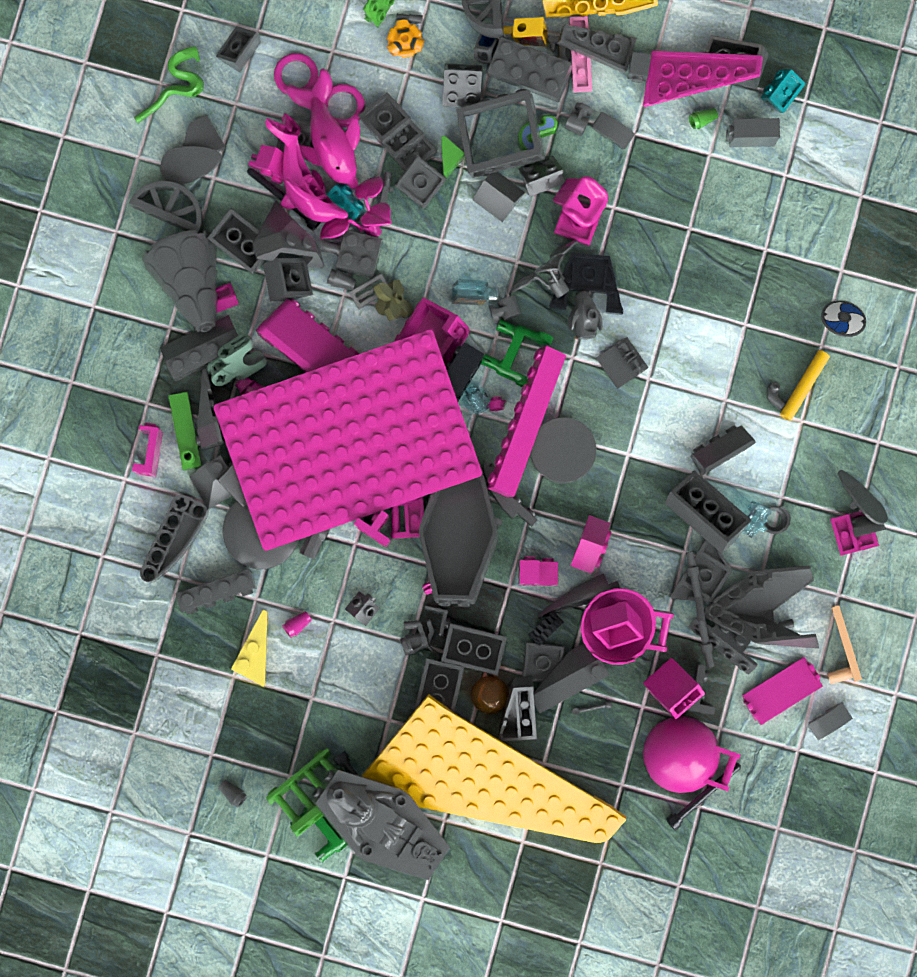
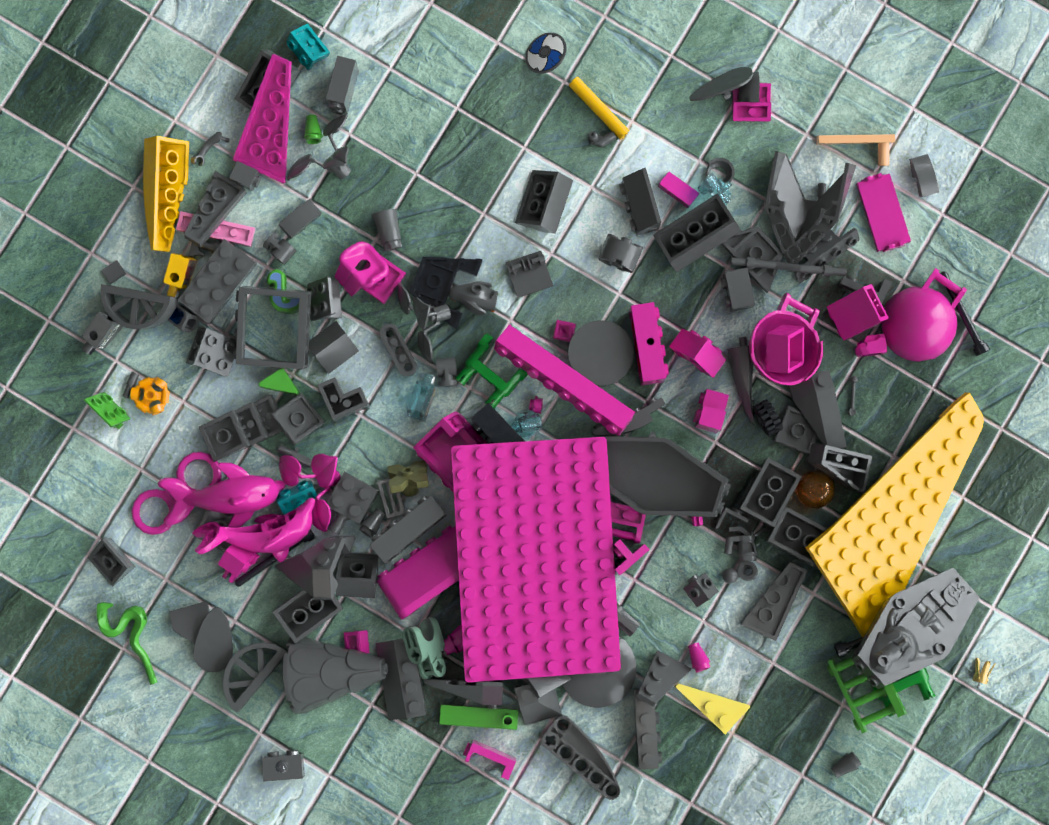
camera: 70 degrees left, 0 degrees up
(89, 260) = (283, 766): none -> dark grey piece
(267, 591) = (661, 677): none -> dark grey wing
(343, 314) = (408, 529): none -> dark grey brick
(356, 903) = (982, 677): none -> pearl gold piece
(363, 683) = (773, 607): none -> dark grey wing
(384, 634) = (731, 575): none -> dark grey plate
(445, 218) = (341, 404): none -> dark grey brick
(517, 251) = (394, 342): none -> dark grey plate
(576, 410) = (564, 330): none -> dark pink tile
(596, 486) = (646, 330): none -> dark pink brick
(626, 216) = (388, 229): none -> dark grey plant
(645, 712) = (871, 346): none -> dark pink rock
(658, 23) = (206, 146): none -> dark grey piece
(663, 567) = (738, 289): none -> dark grey brick
(666, 443) = (620, 253): none -> dark grey brick
(675, 146) = (335, 163): none -> dark grey plant
(697, 357) = (544, 201): none -> dark grey slope
(746, 484) = (678, 189): none -> dark pink slope

